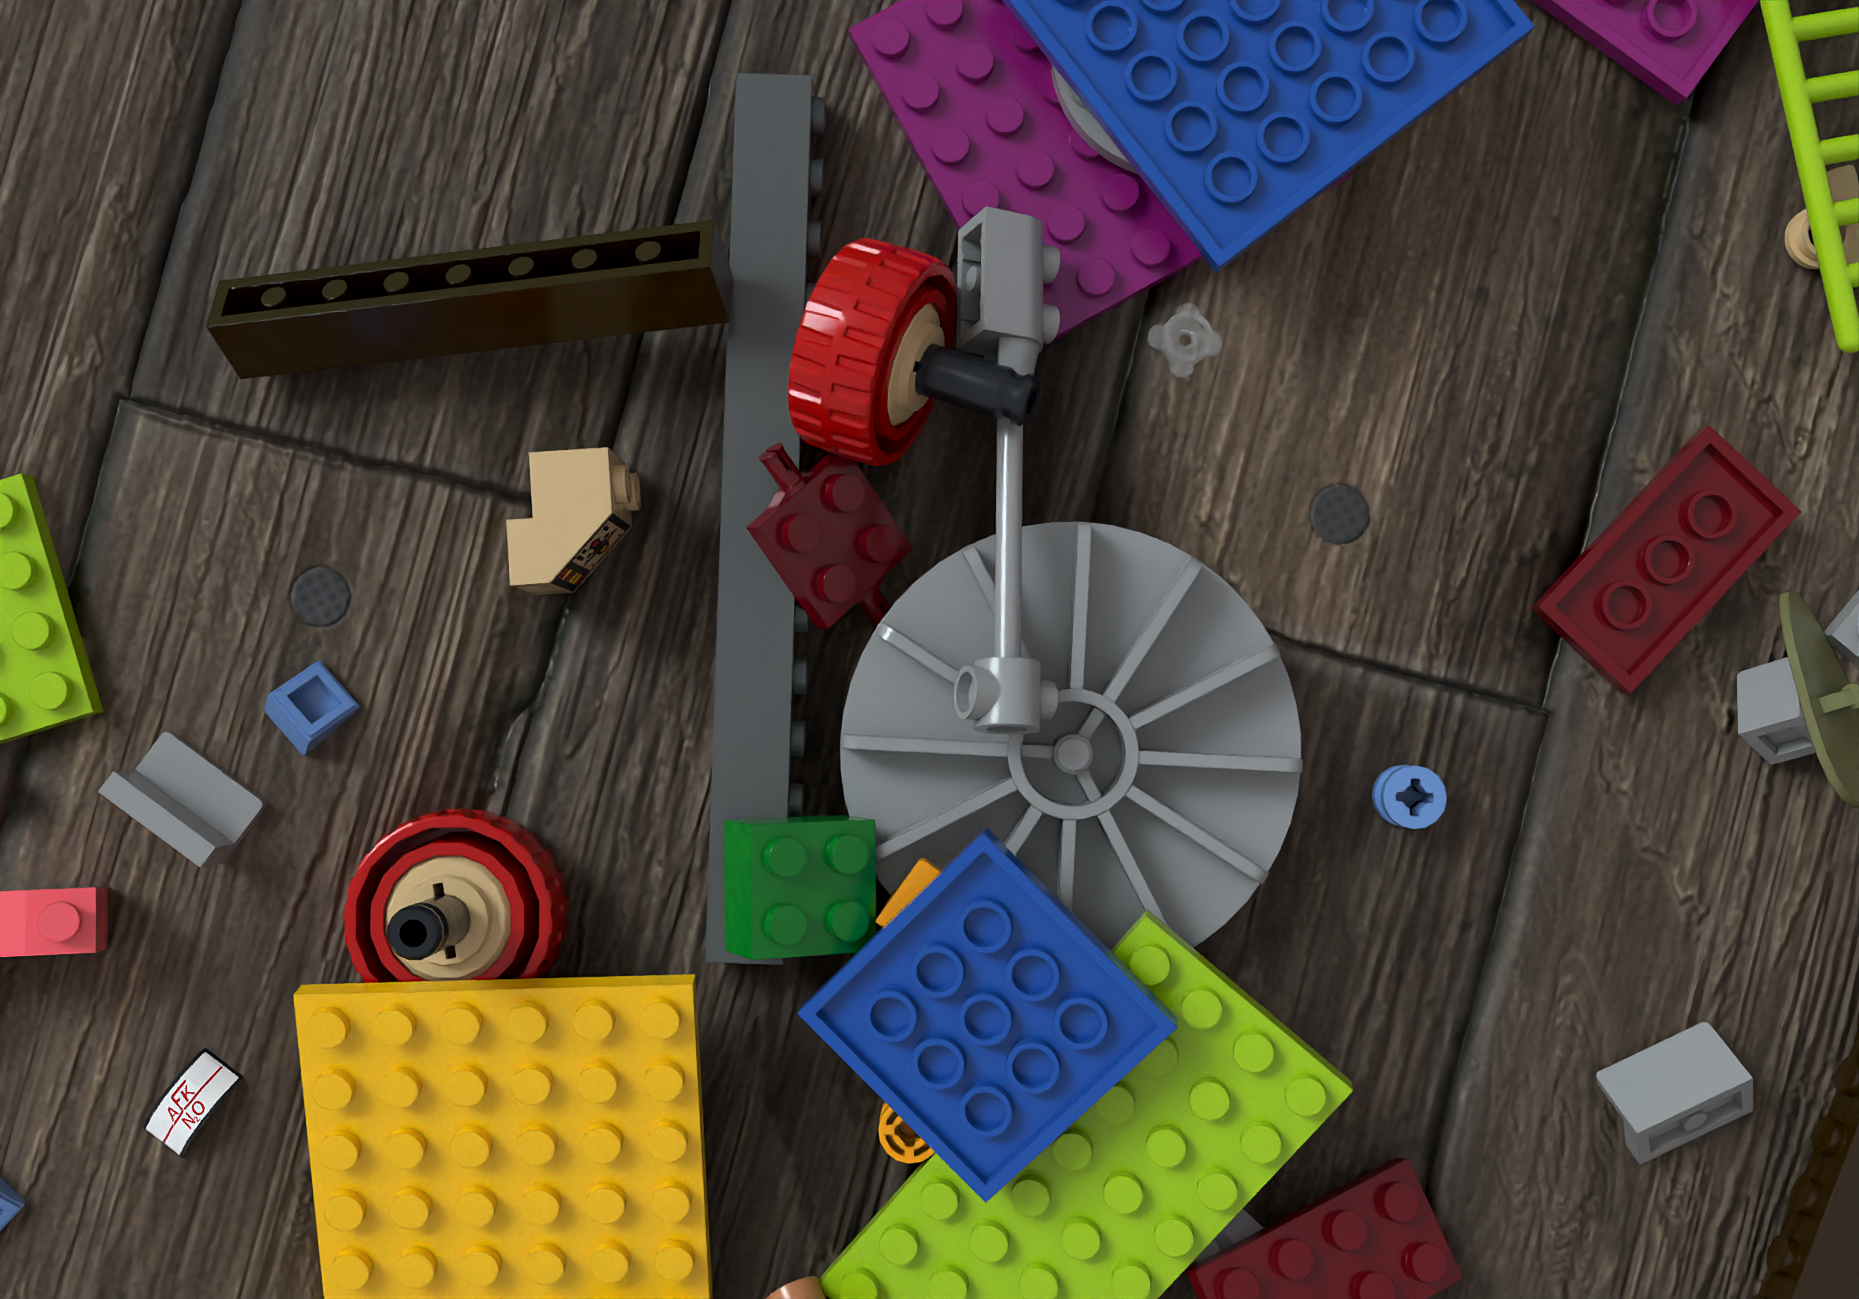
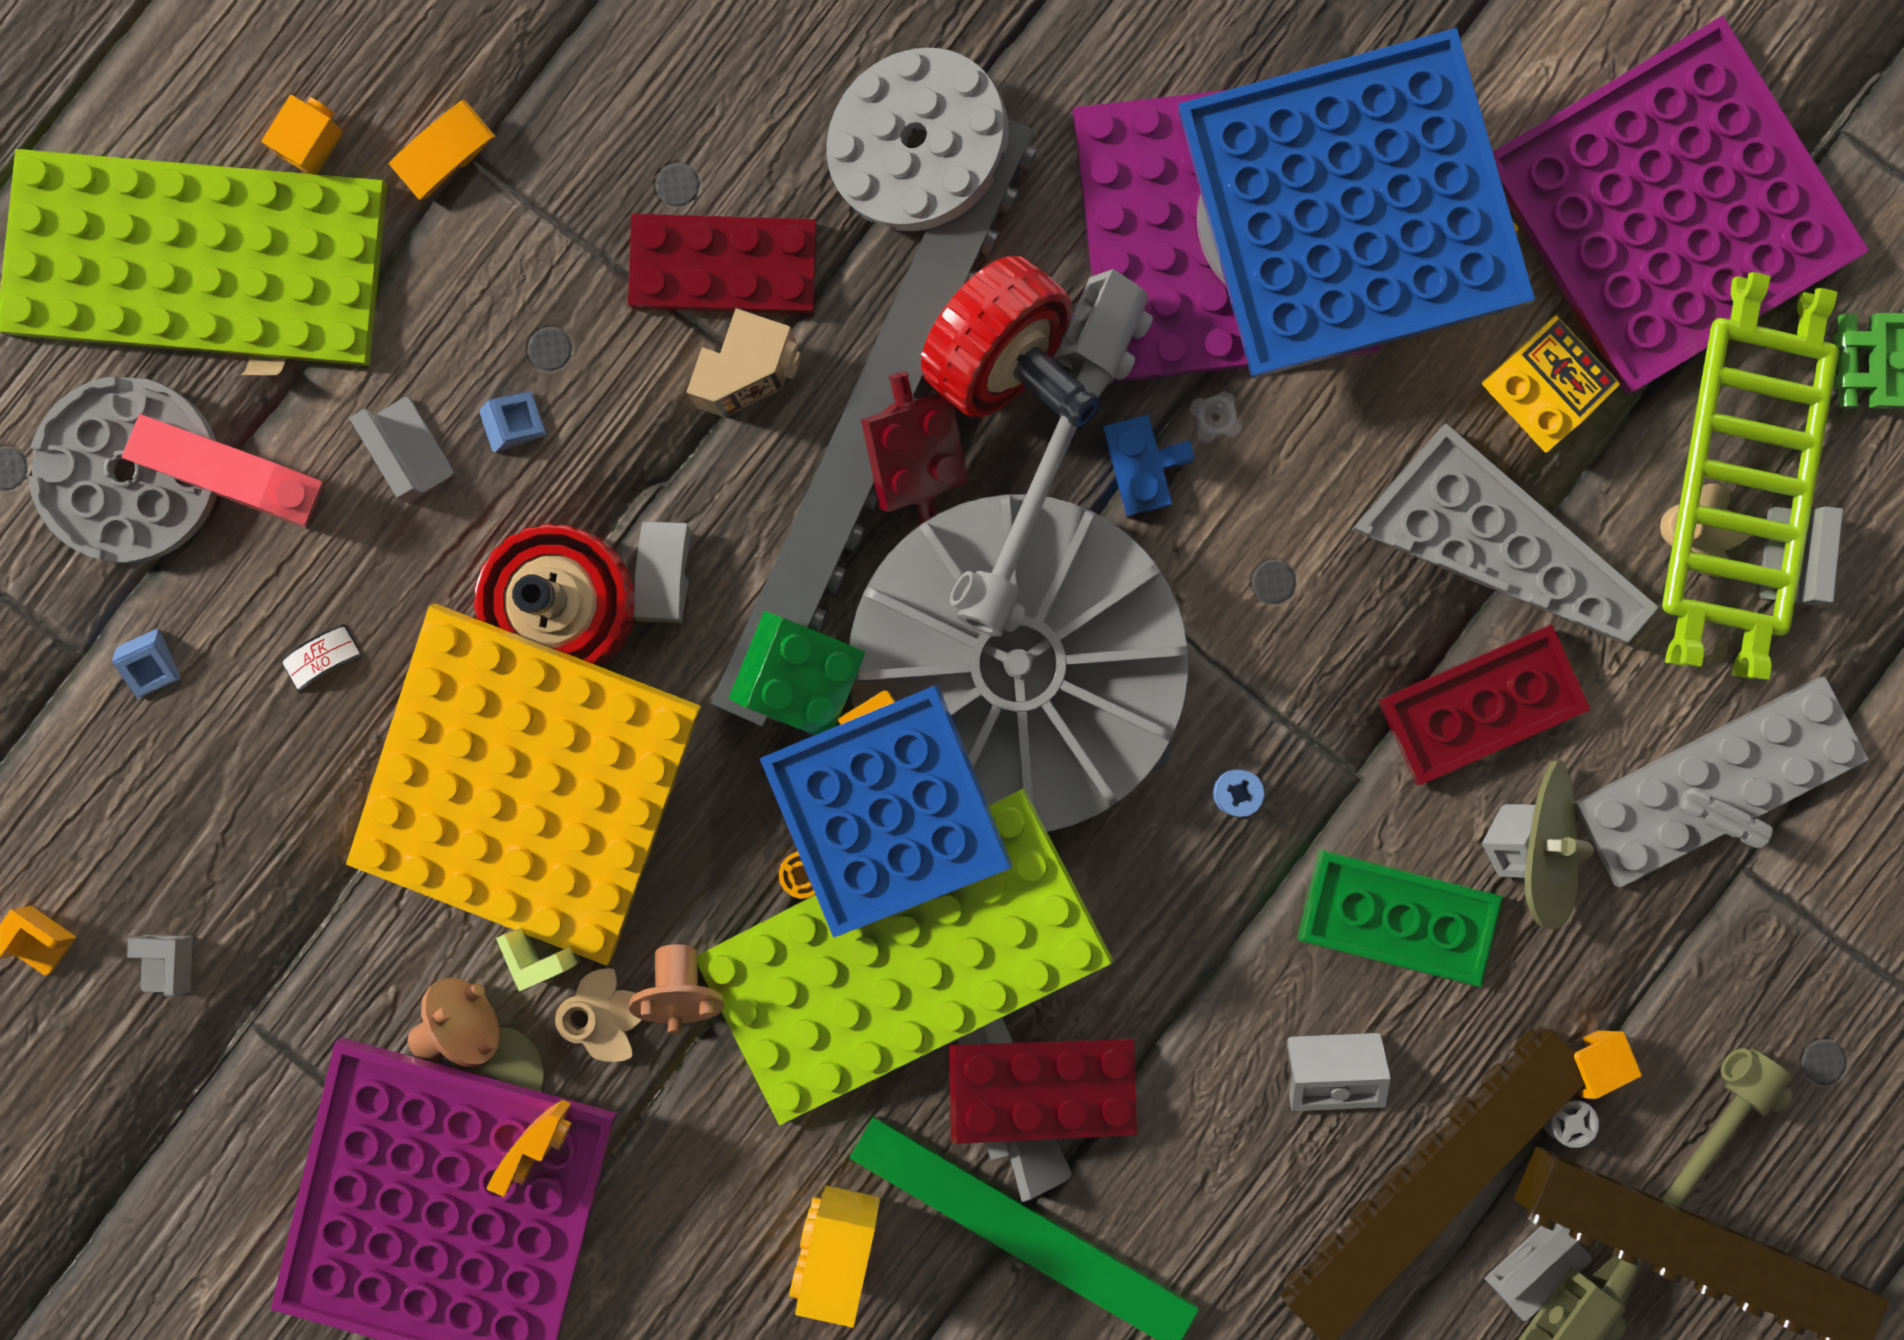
camera: 25 degrees right, 0 degrees up
(79, 403) = (441, 149): none -> light orange slope
(474, 300) = (740, 190): dark brown brick -> none
(486, 411) = (722, 263): none -> dark red plate
(573, 820) = (660, 572): none -> light grey slope
(667, 81) = (942, 176): none -> light grey plate
(1117, 438) = (1141, 465): none -> blue plate
(1570, 339) = (1481, 525): none -> light grey wing
(1584, 127) = (1550, 383): none -> yellow piece
(1671, 867) = (1399, 918): none -> green tile

